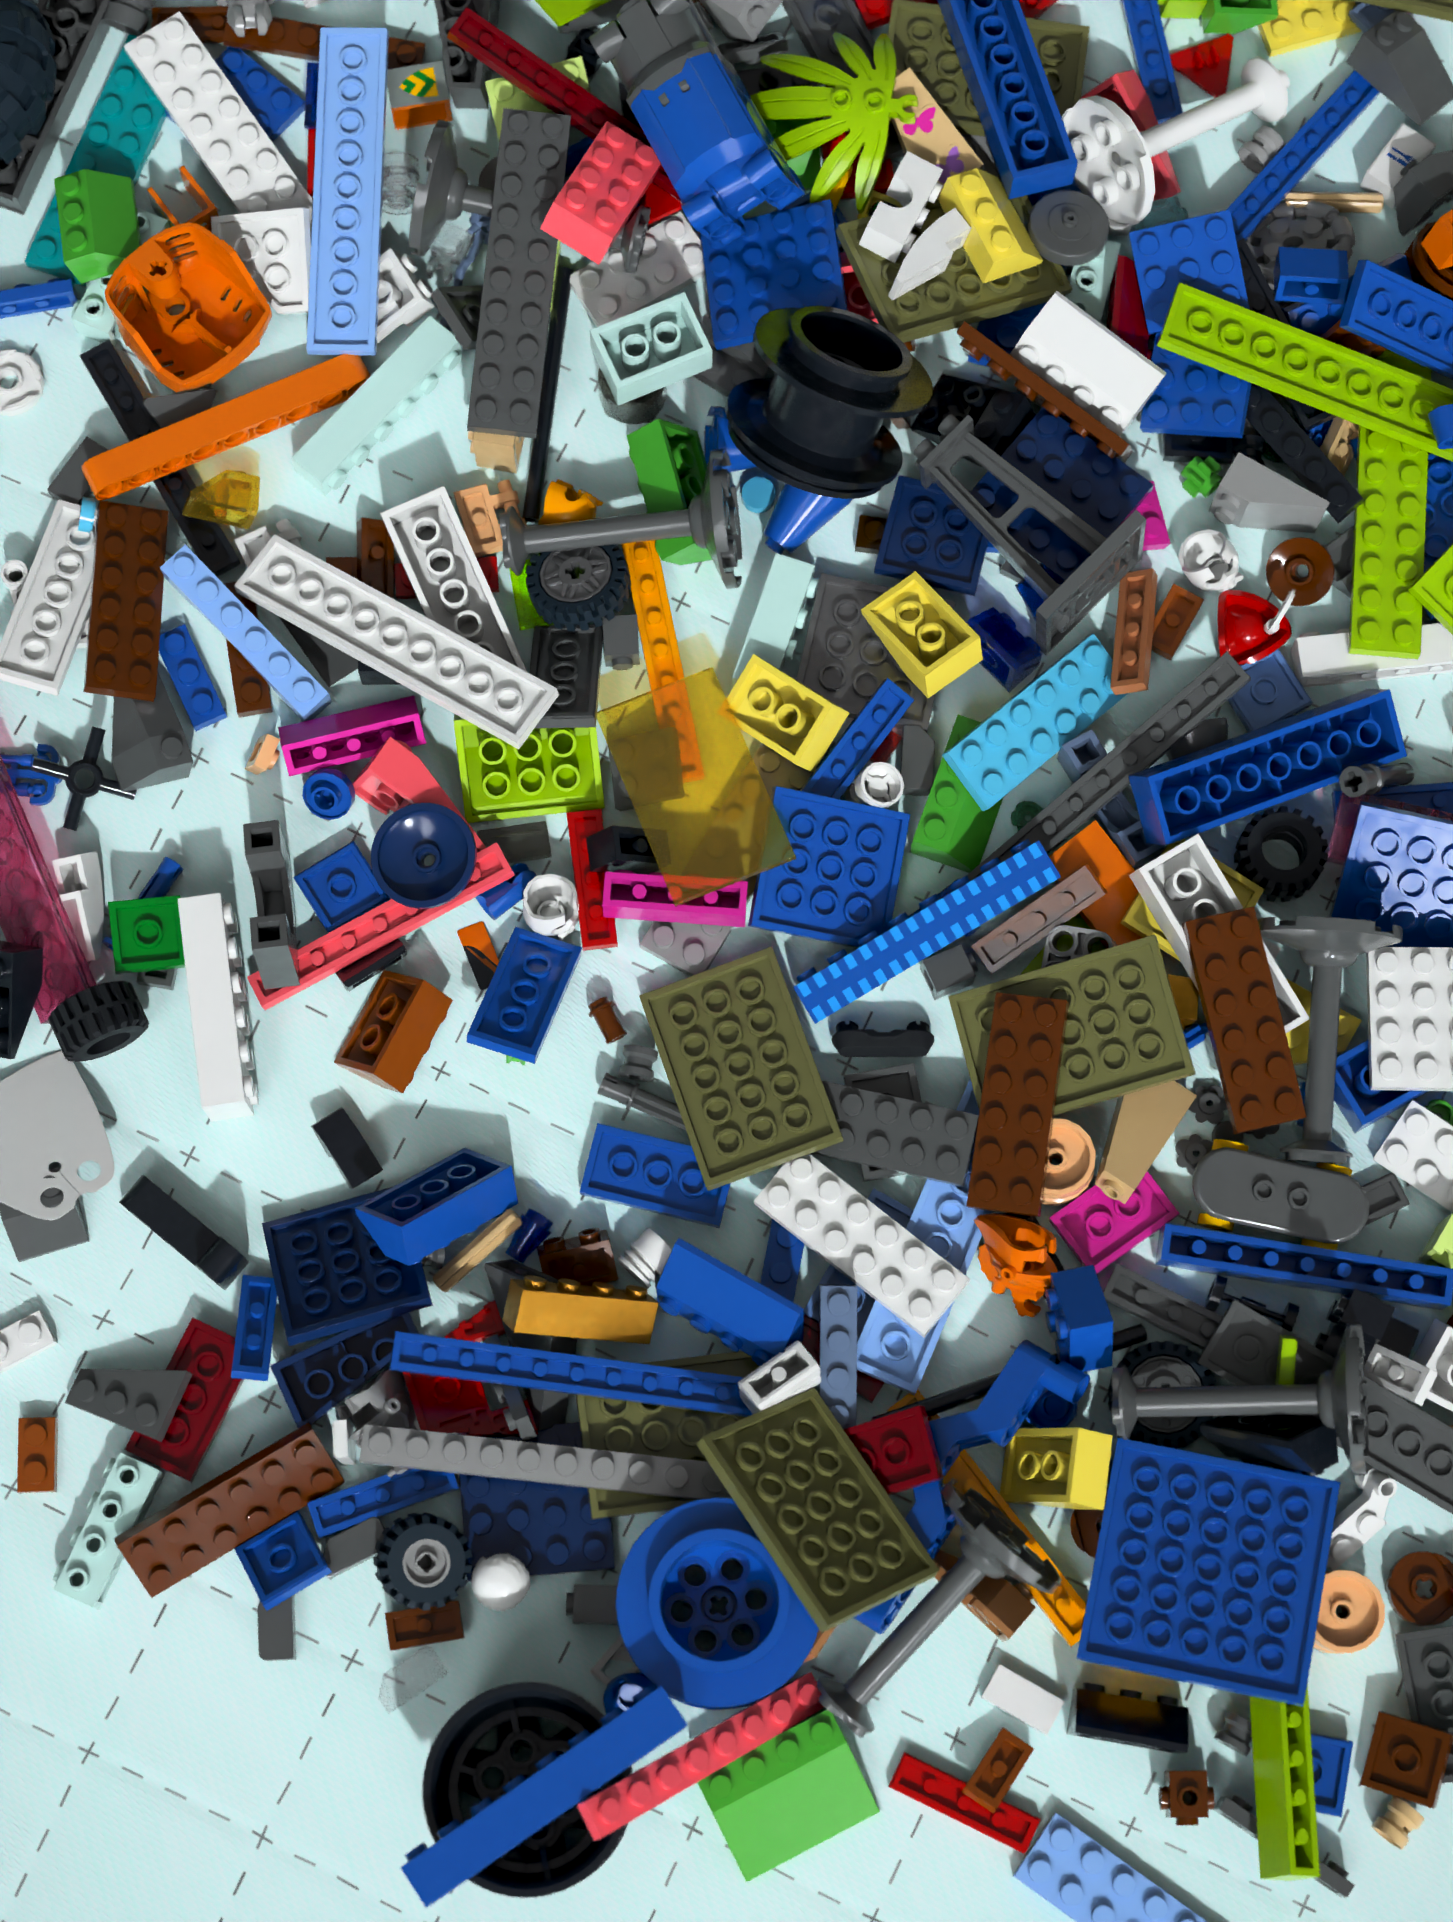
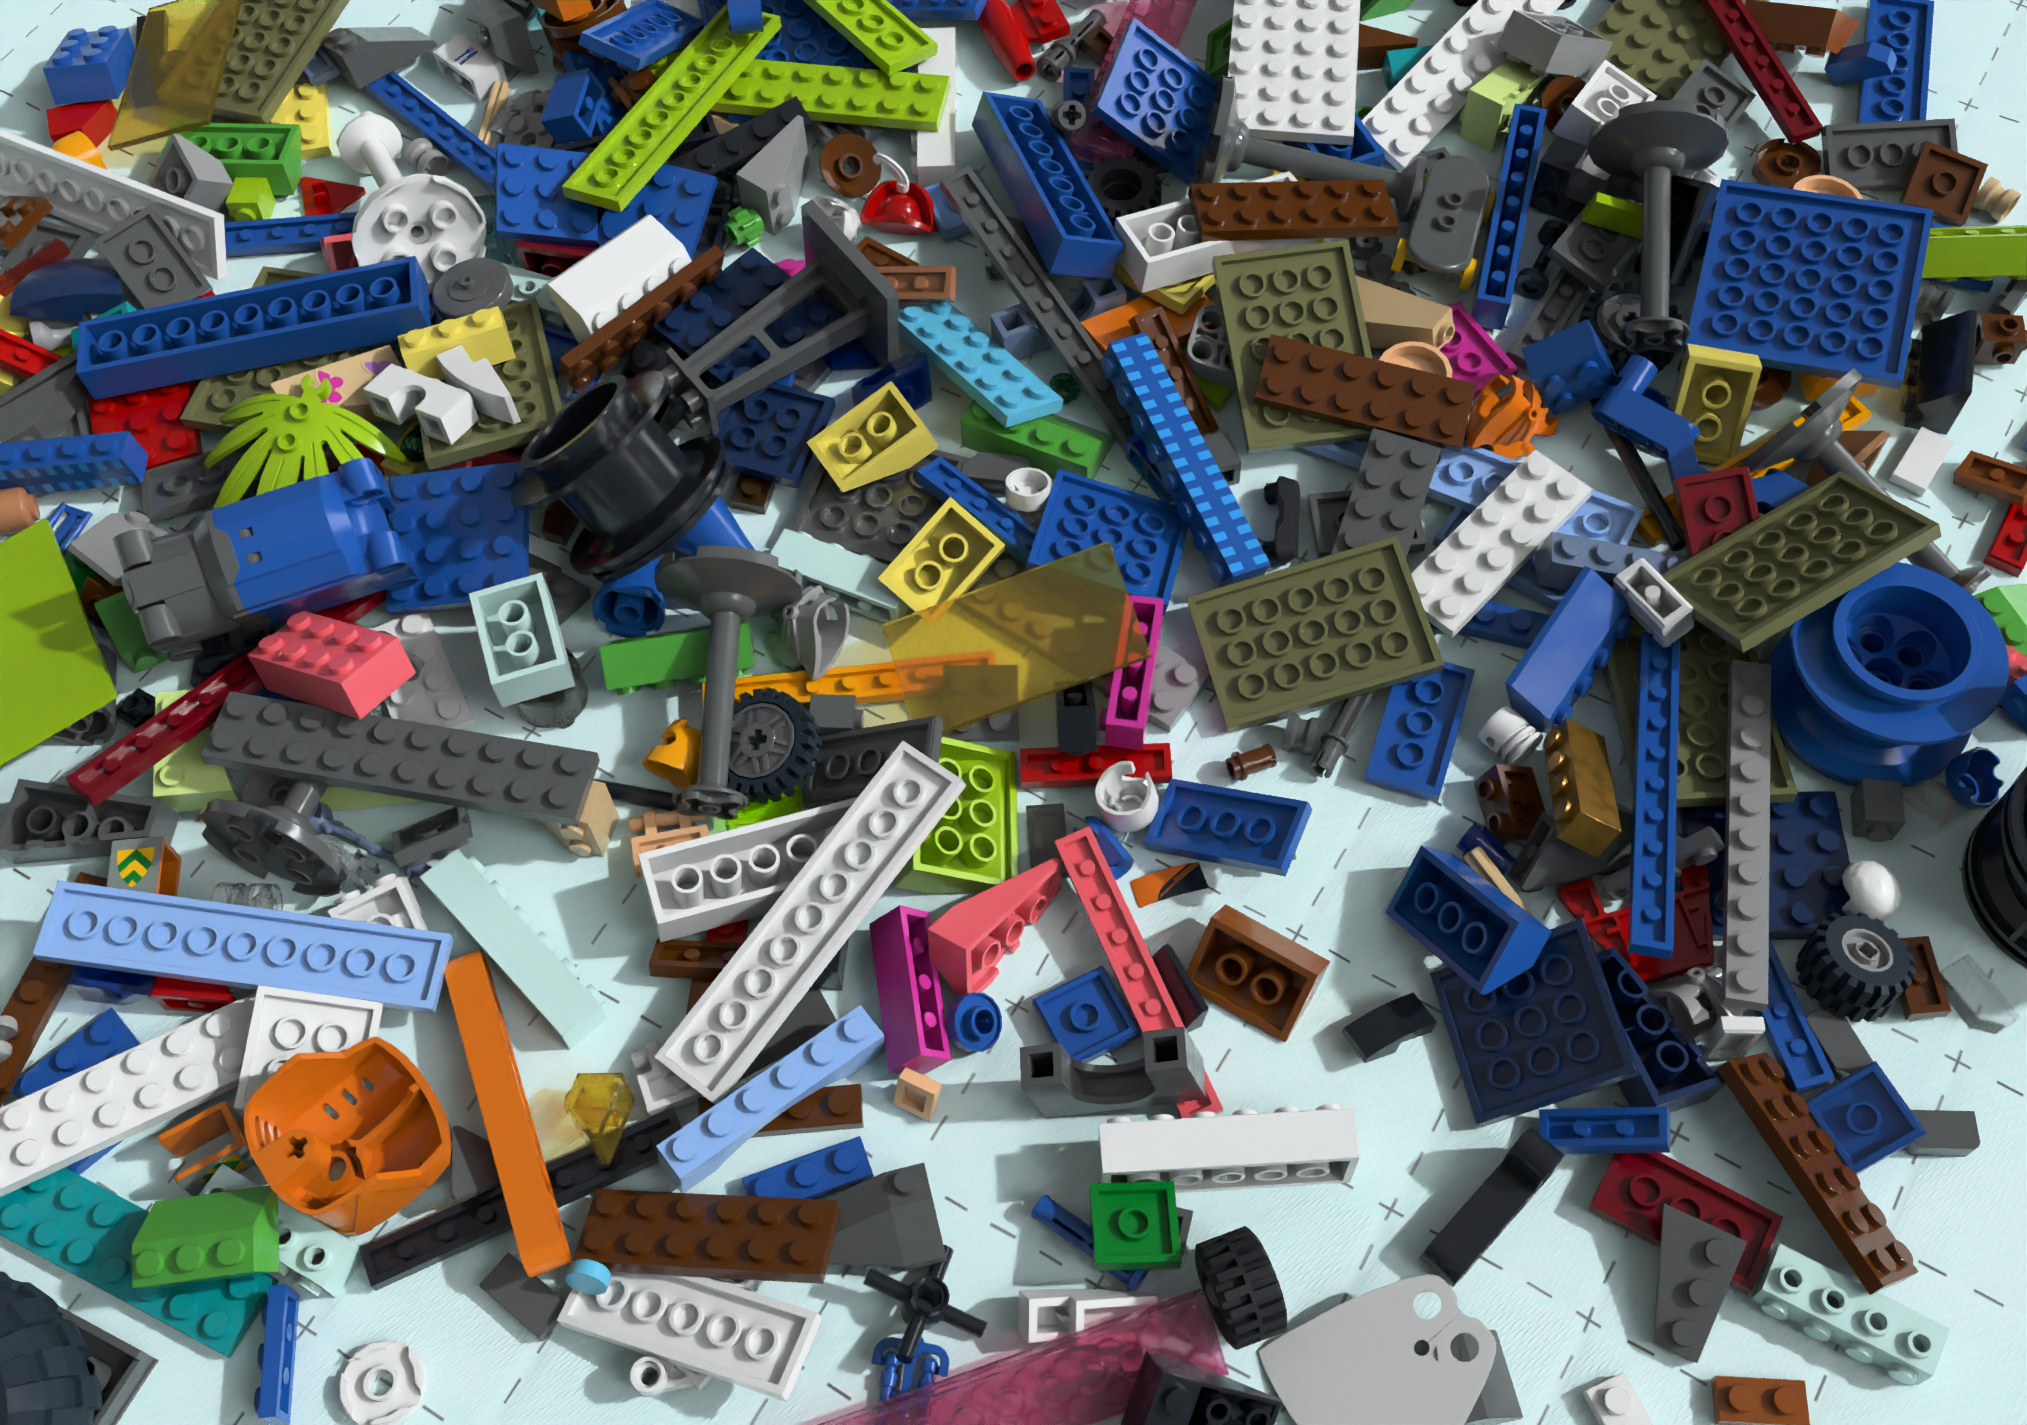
camera: 80 degrees left, 15 degrees down
(405, 843) = (1075, 881): dark blue dish -> none
(707, 607) = (808, 634): none -> light grey helmet

